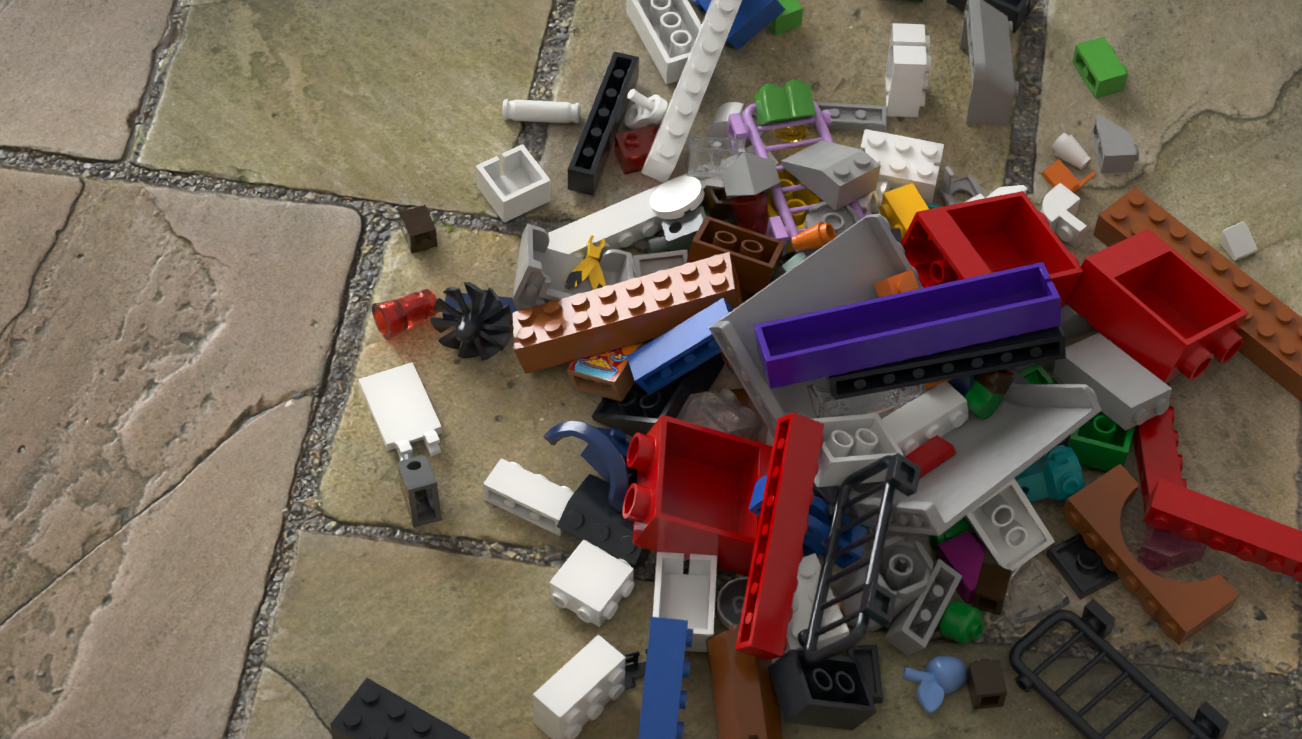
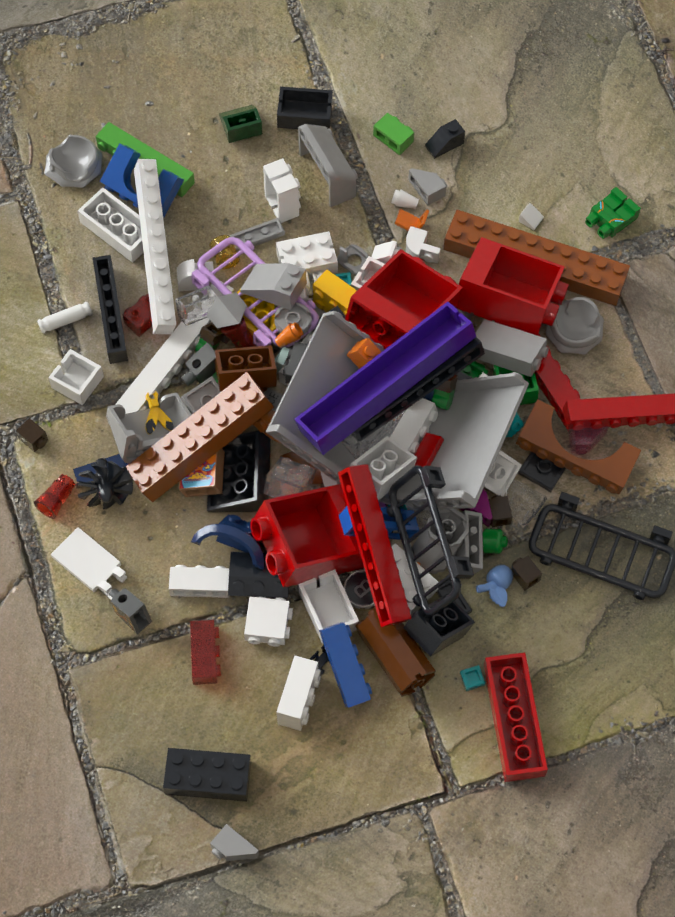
camera: 25 degrees left, 10 degrees up
(486, 585) = (204, 652): none -> clear red brick
(644, 110) = (132, 290): white piece -> none
(676, 197) = (187, 343): white tile -> none
(678, 349) = (246, 446): brick -> none
(784, 103) = (222, 249): bright green brick -> none
(1169, 101) = (446, 139): none -> black slope
(1229, 401) = (576, 326): none -> light grey piece

